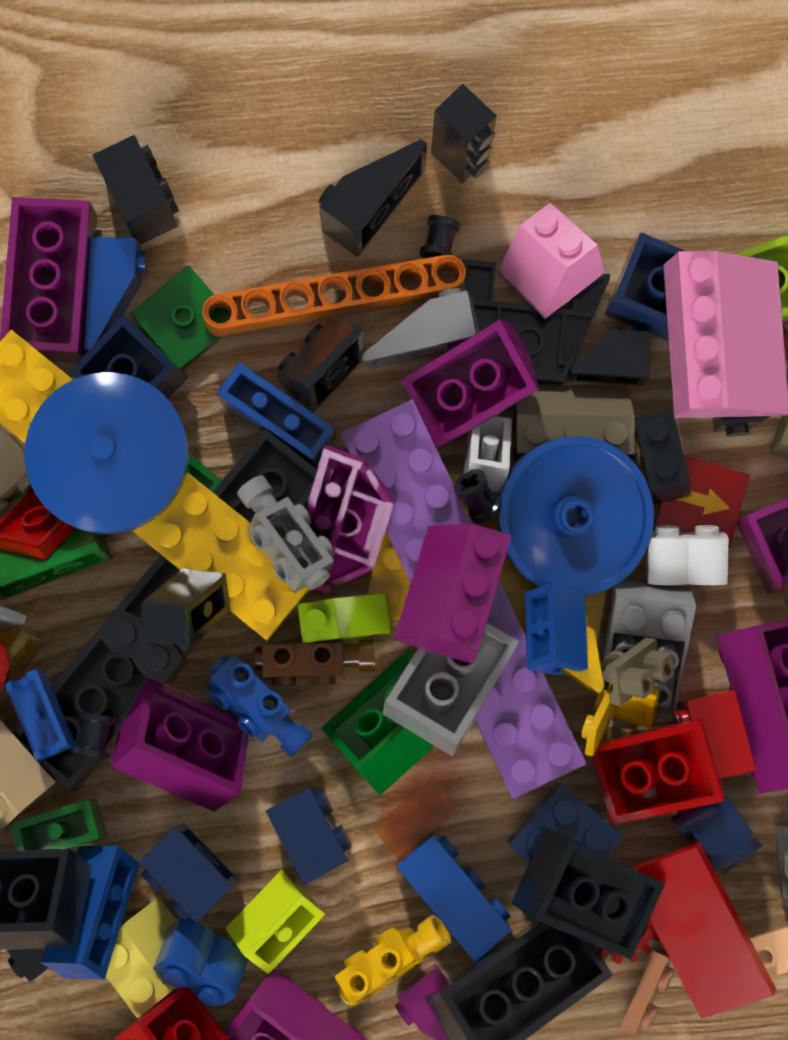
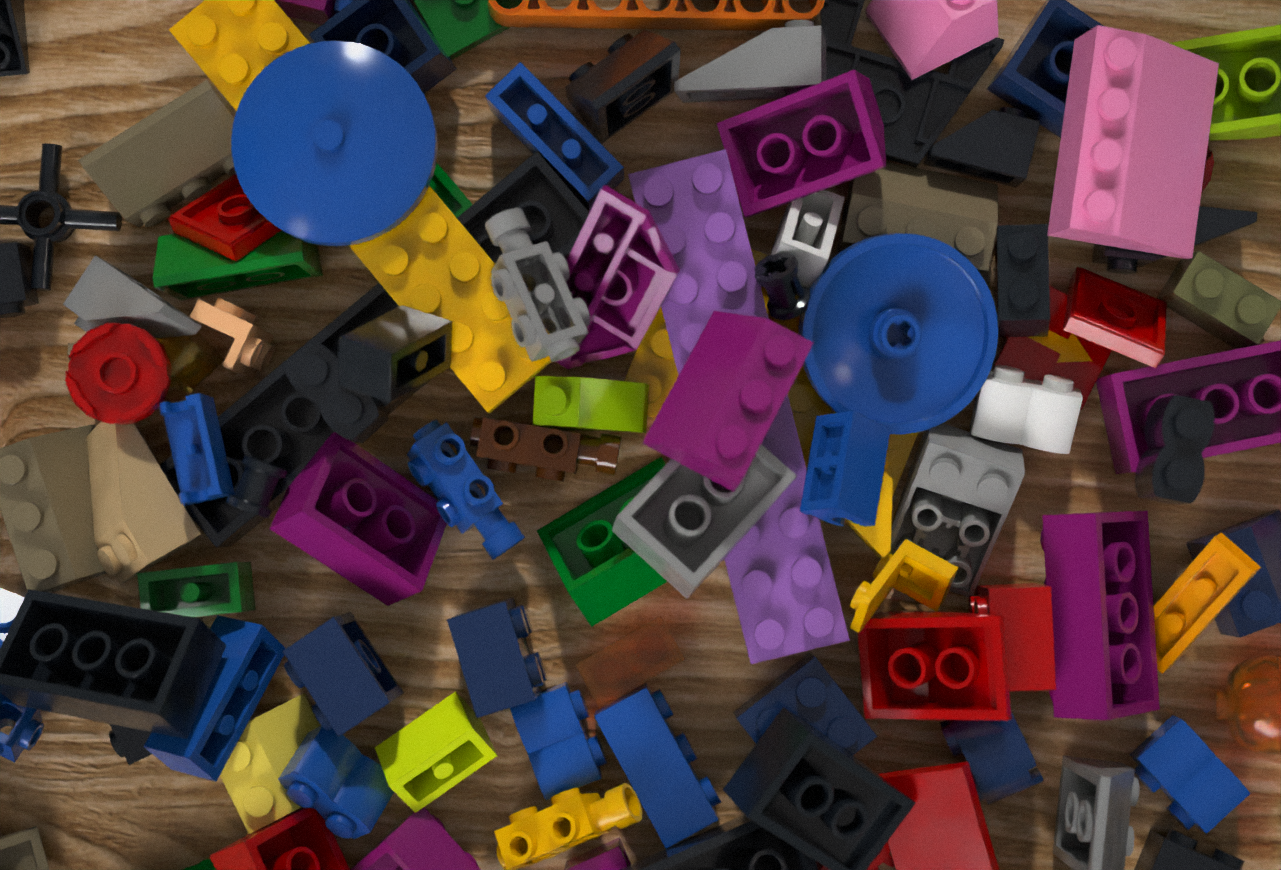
camera: 20 degrees right, 5 degrees up
(68, 624) = (251, 346): none -> light nougat bracket
(371, 893) = (557, 740): none -> blue brick
(636, 670) = (933, 538): dark tan hips -> none
(741, 470) = (1116, 317): none -> red tile

